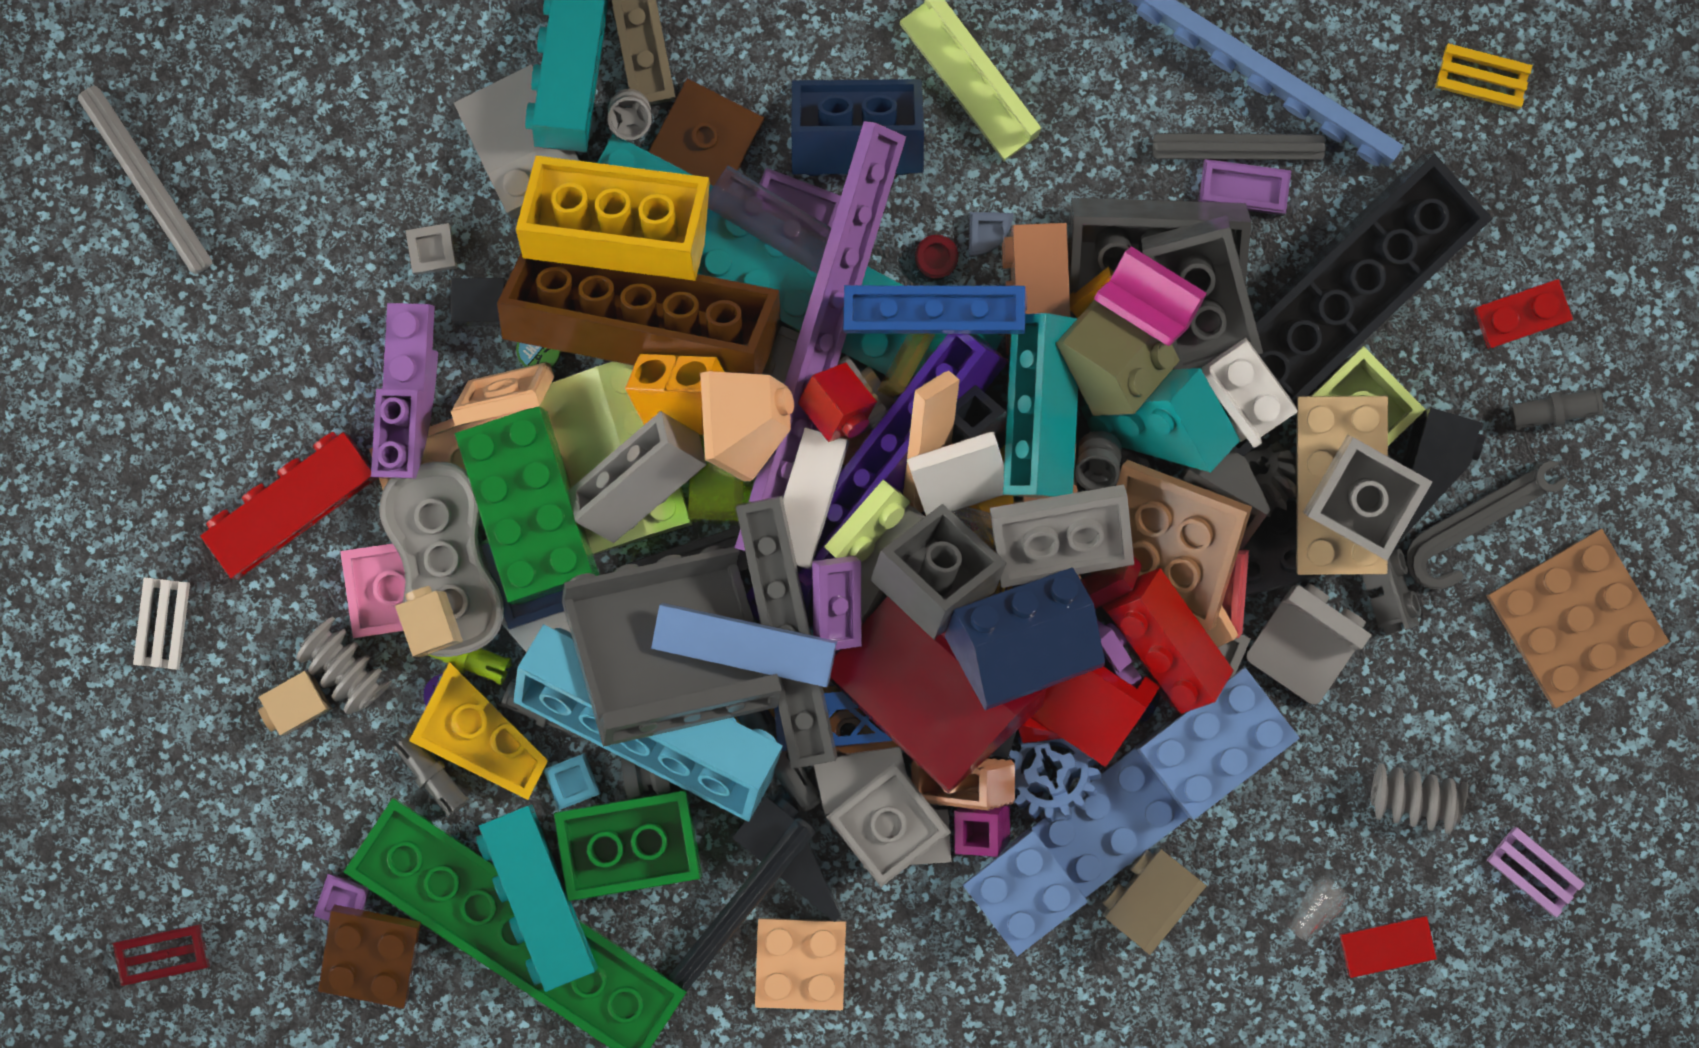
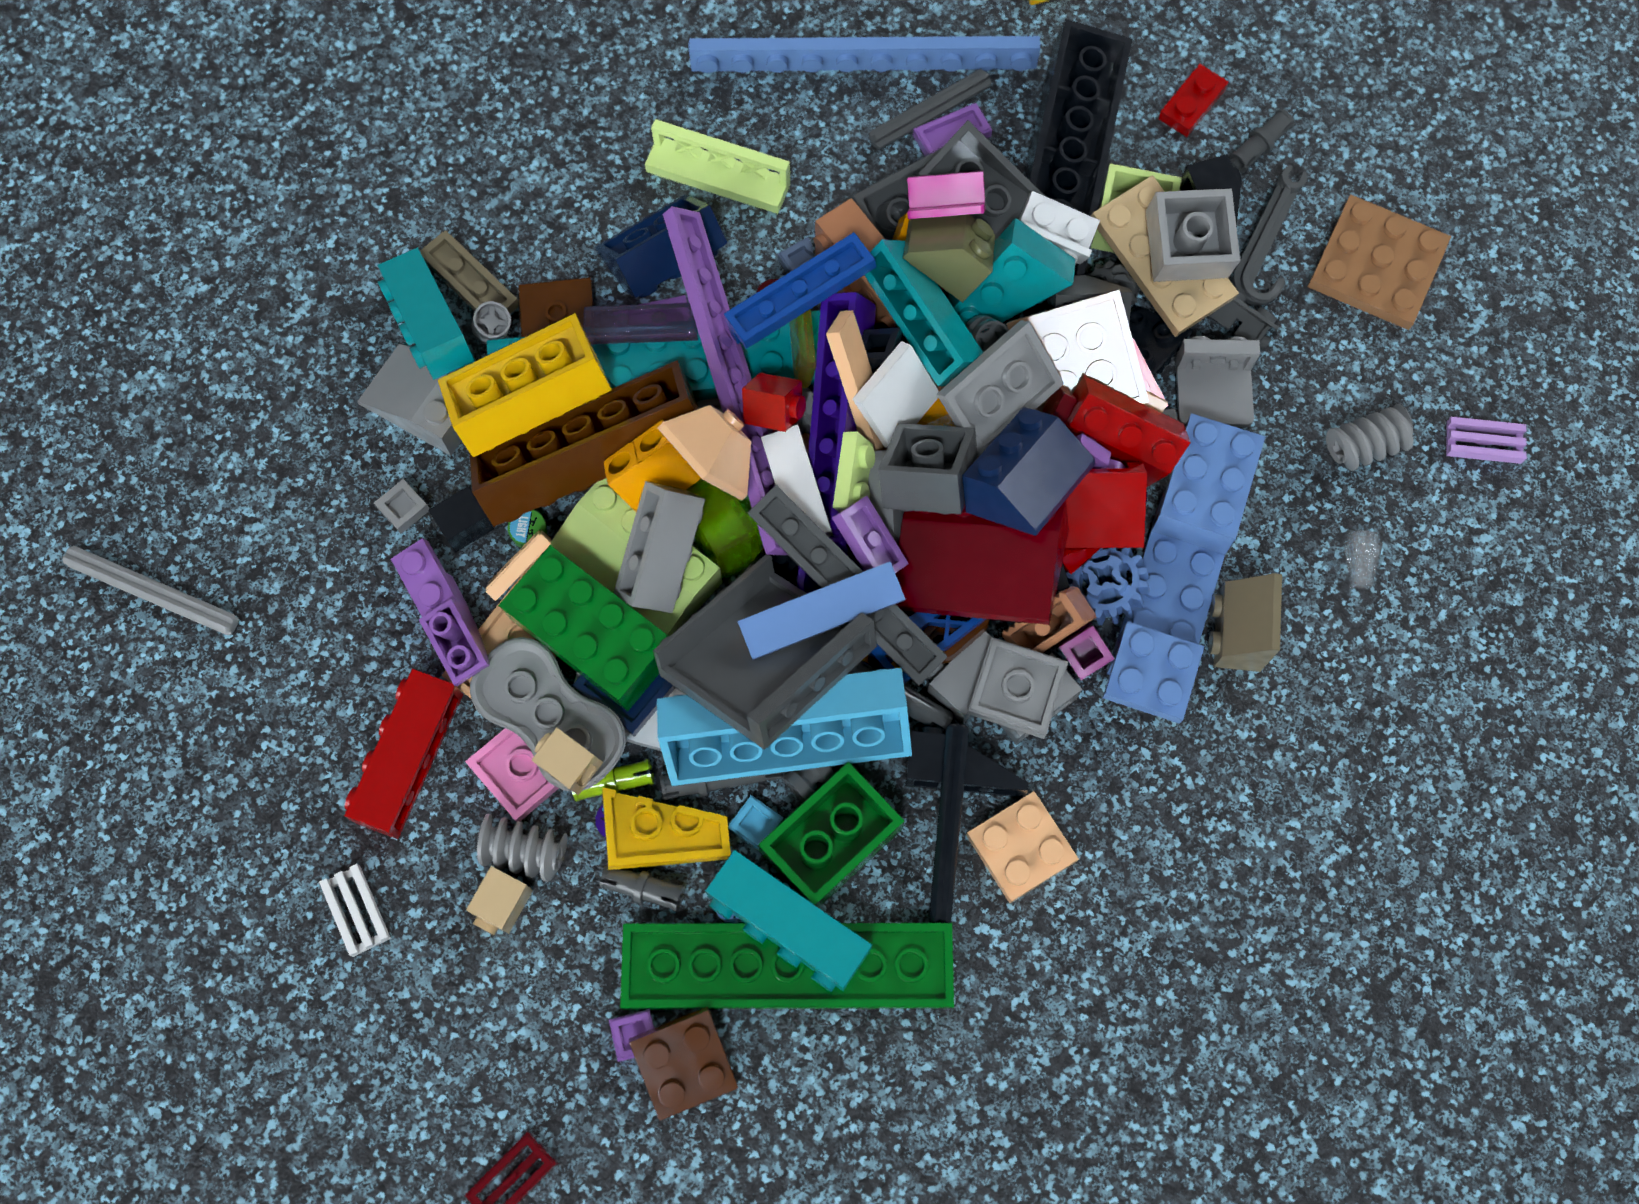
camera: 35 degrees left, 15 degrees down
(1387, 946) = (1428, 555): red tile -> none

